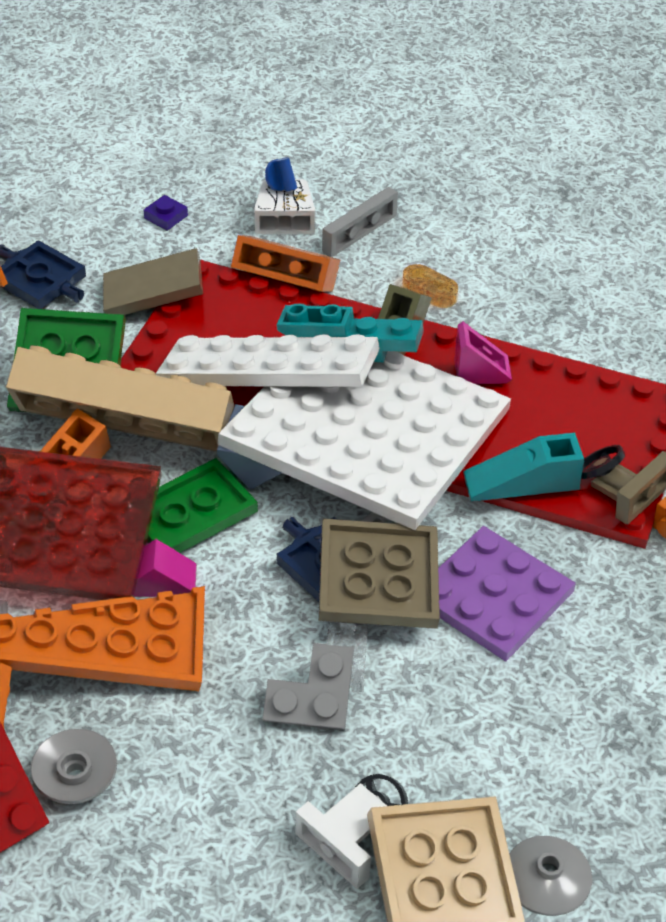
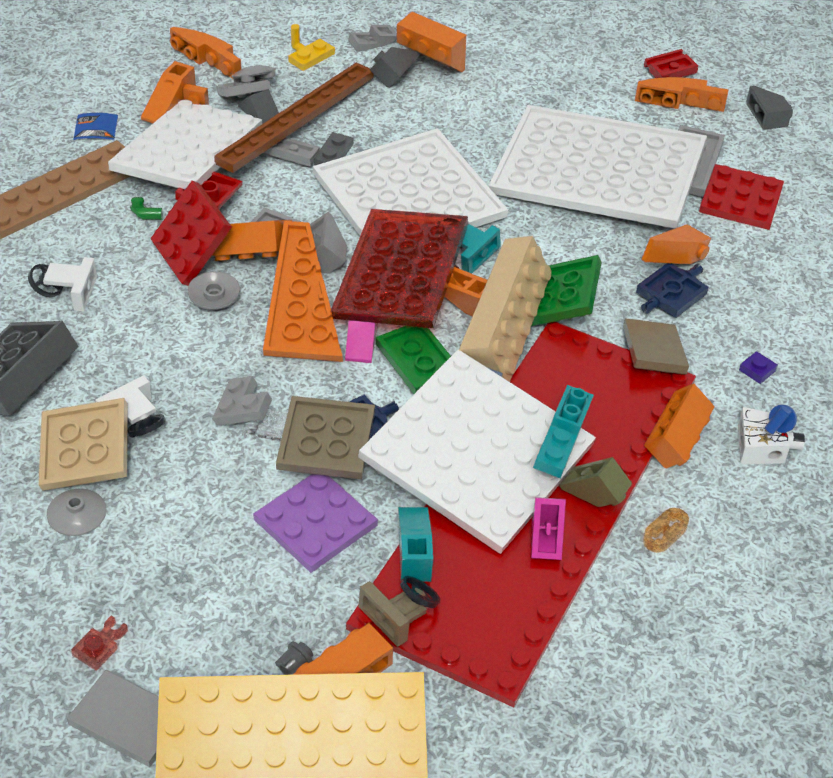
camera: 95 degrees right, 0 degrees up
(273, 360) = (535, 387): white plate -> none
(359, 222) = (746, 486): light grey plate -> none

